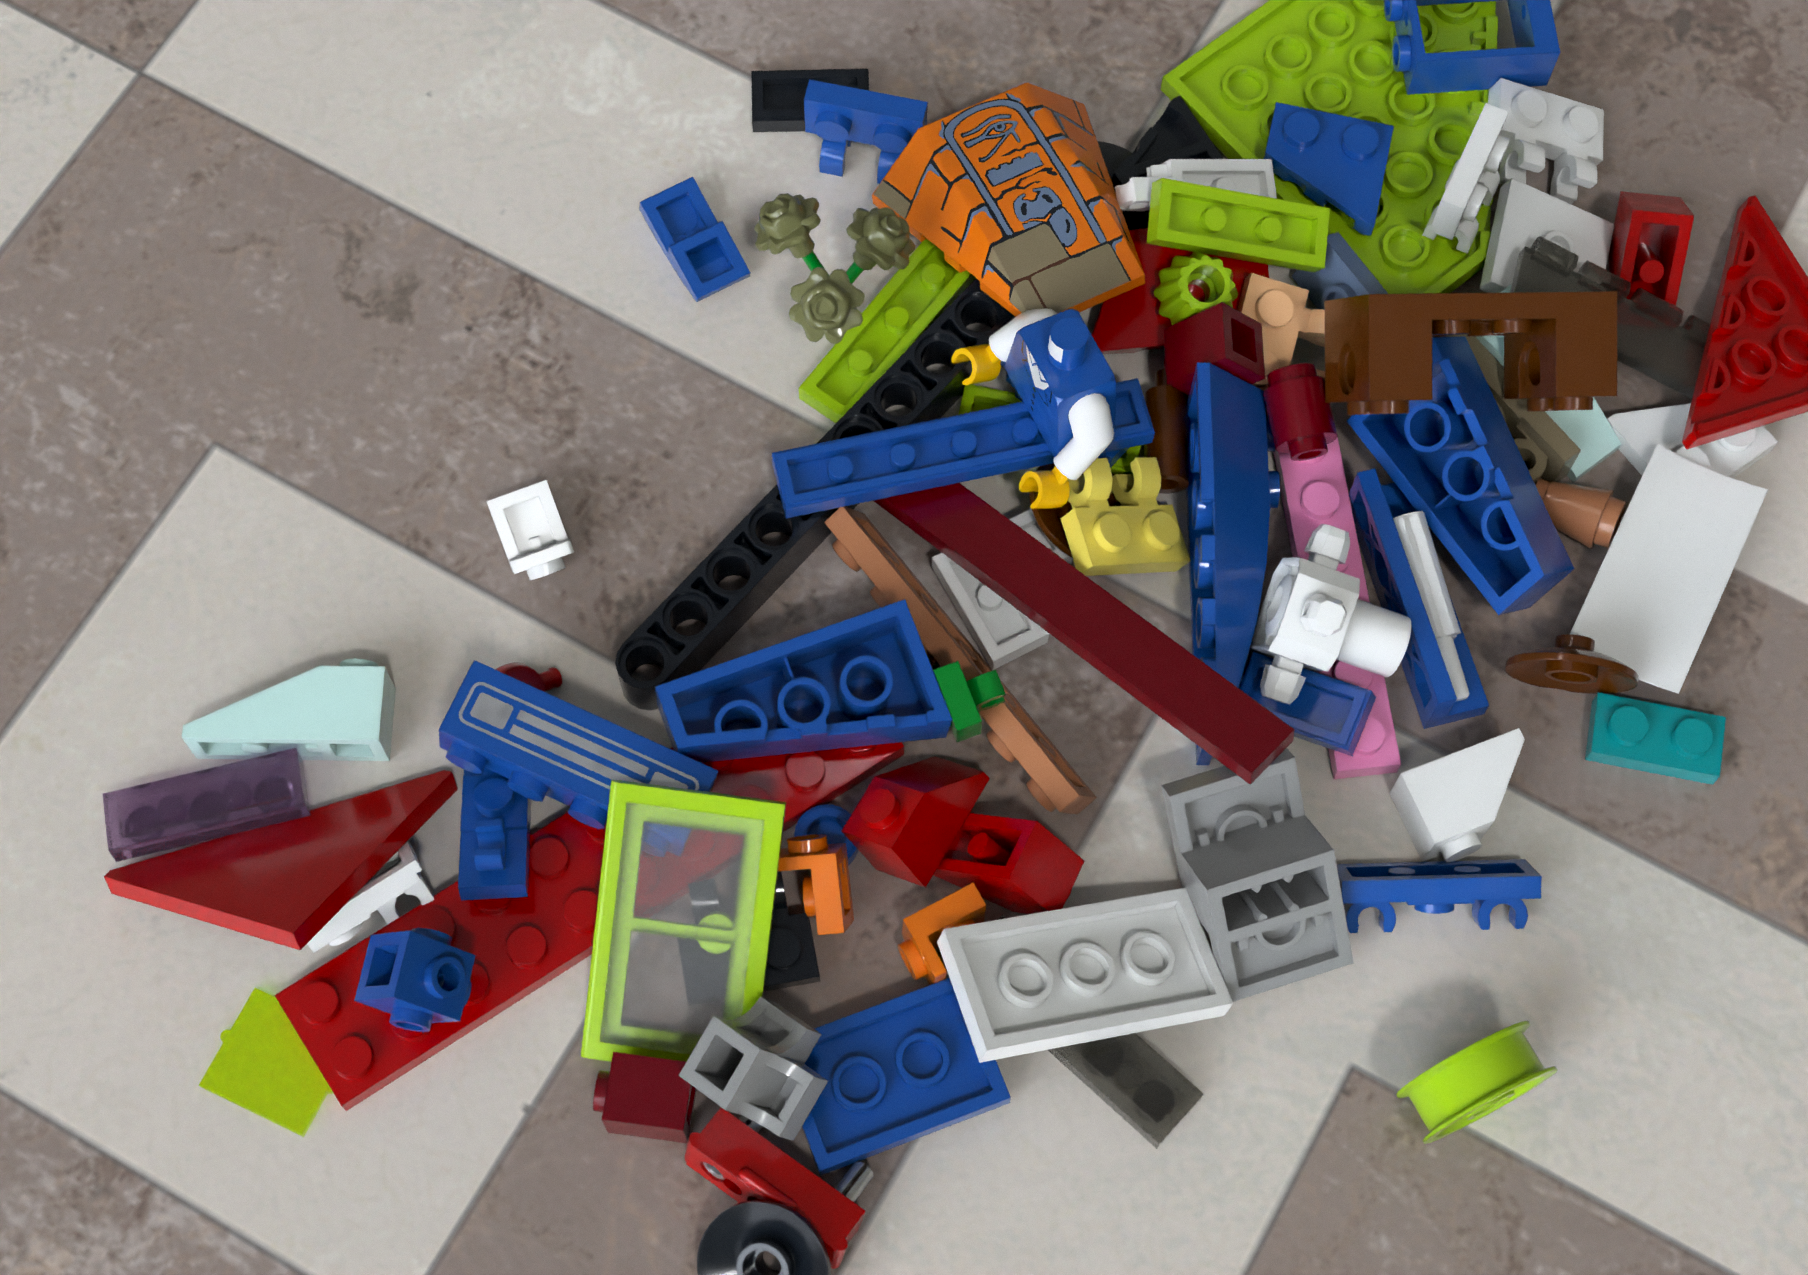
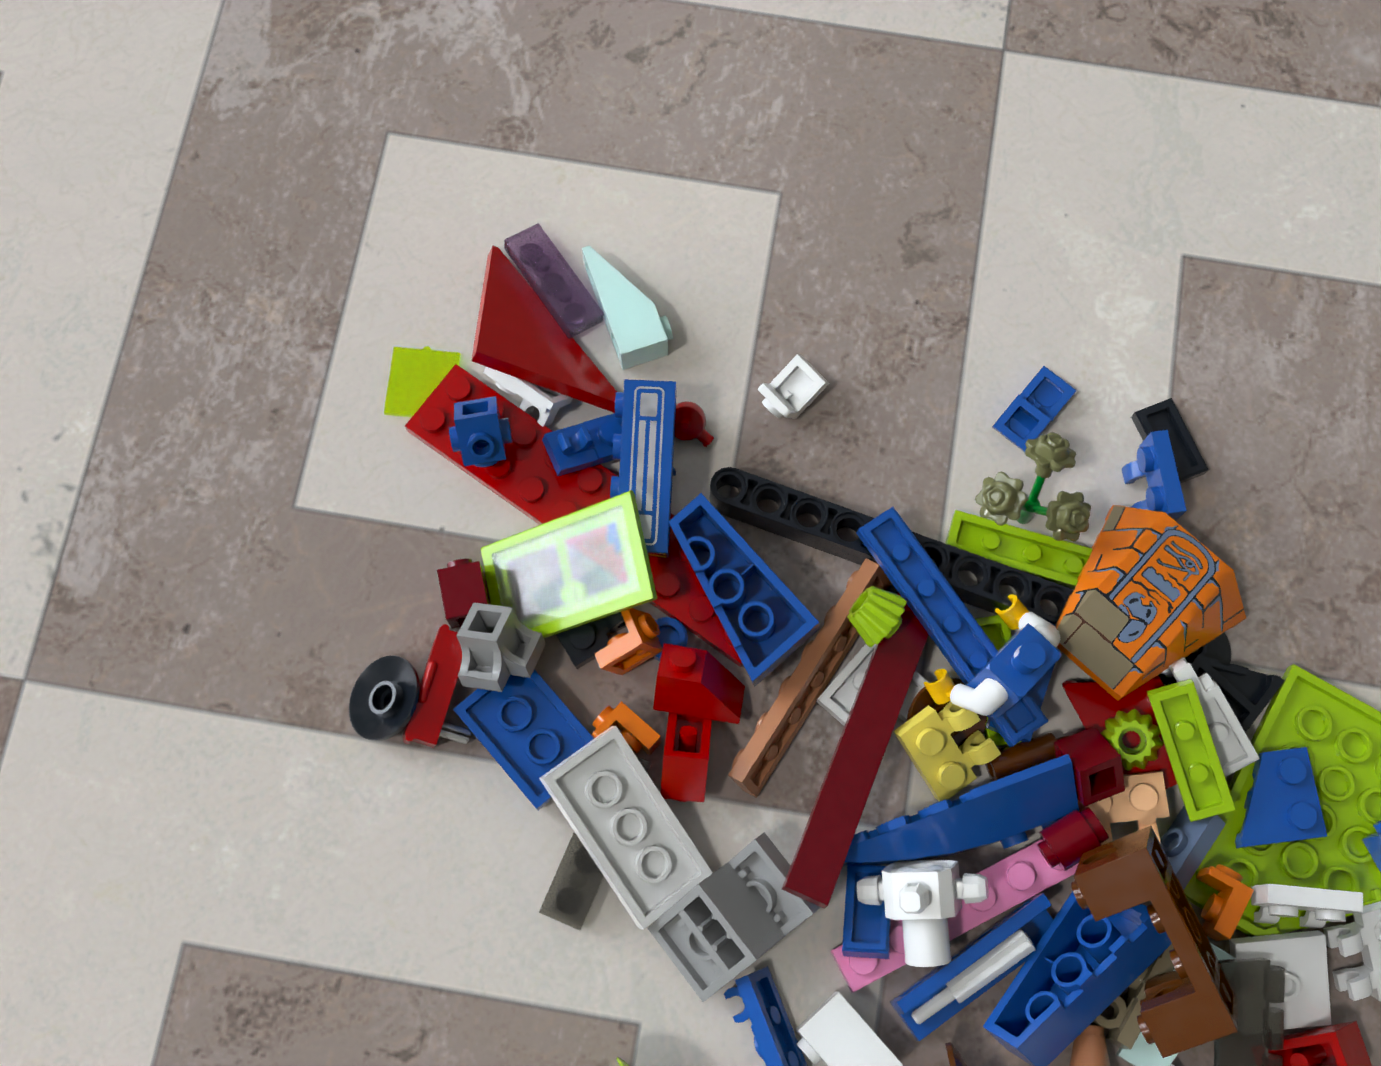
camera: 70 degrees right, 5 degrees up
(916, 531) = (876, 614): none -> lime piece
(968, 698) = (773, 684): green tile -> none
(1436, 263) = (1223, 910): none -> orange bracket

